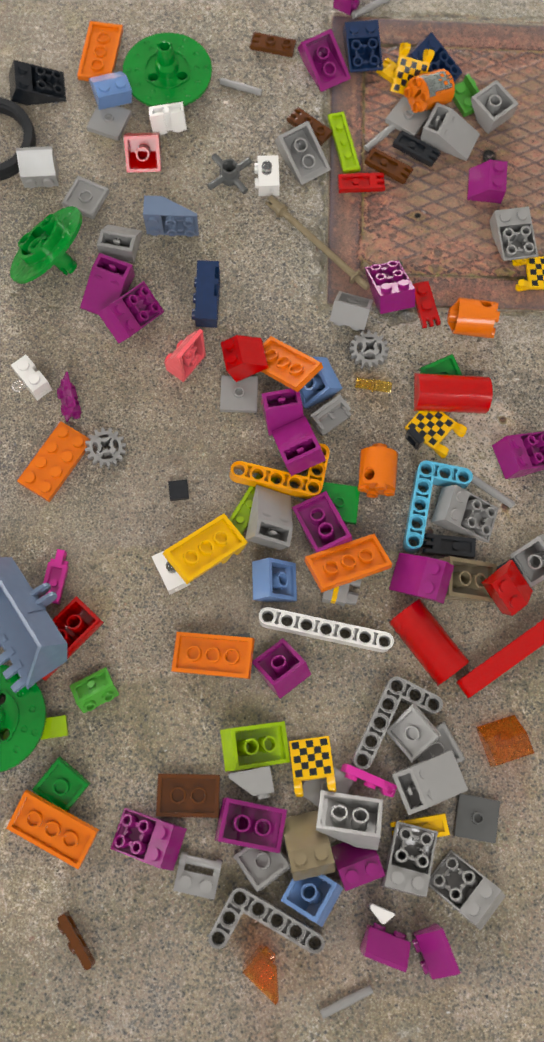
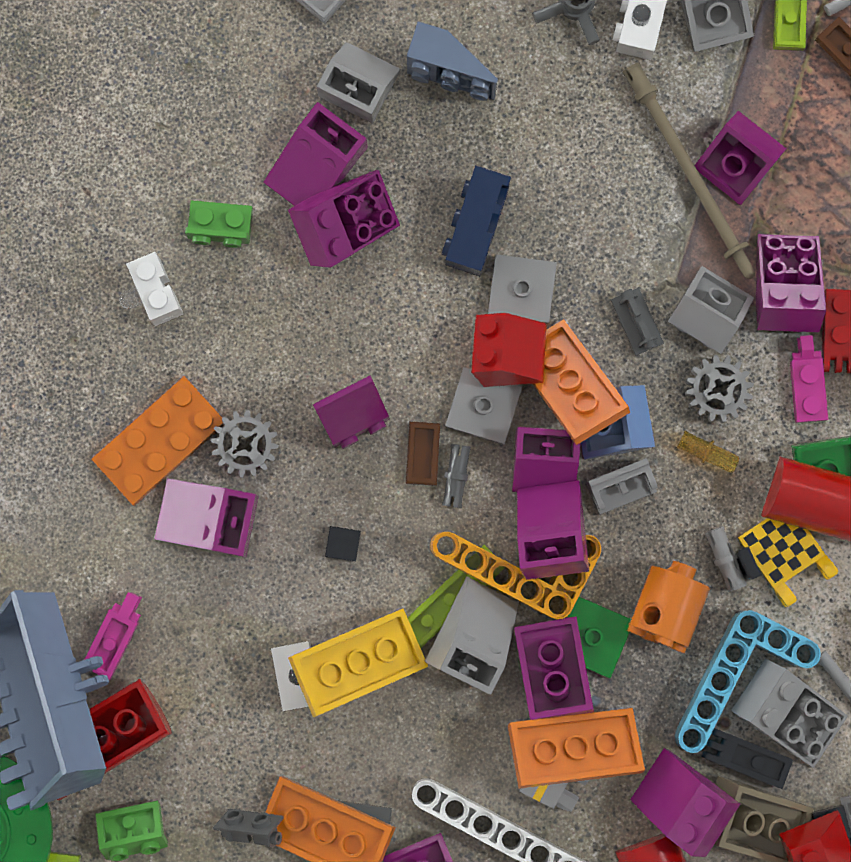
camera: 20 degrees right, 10 degrees up
(47, 246) = (233, 69): green piece -> none
(60, 335) = (219, 223): none -> bright green bracket
(68, 395) = (202, 330): magenta hinge -> none
(94, 494) = (206, 517): none -> slope
(159, 667) = (240, 825): none -> dark grey hinge
(163, 410) = (352, 413): none -> magenta slope
(186, 356) = (413, 321): coral slope -> none
(211, 428) = (423, 453): none -> reddish brown tile
(234, 434) = (456, 476): none -> dark grey pin
(243, 323) = (522, 287): none -> light grey plate
(274, 580) = (453, 738): medium blue slope -> none
(312, 327) = (637, 321): none -> dark grey hinge
(342, 229) = (739, 157): none -> magenta slope
(361, 182) = (797, 76): red hinge -> none
(401, 439) = (725, 559): none -> light grey pin
(417, 335) = (808, 382): none -> dark pink hinge

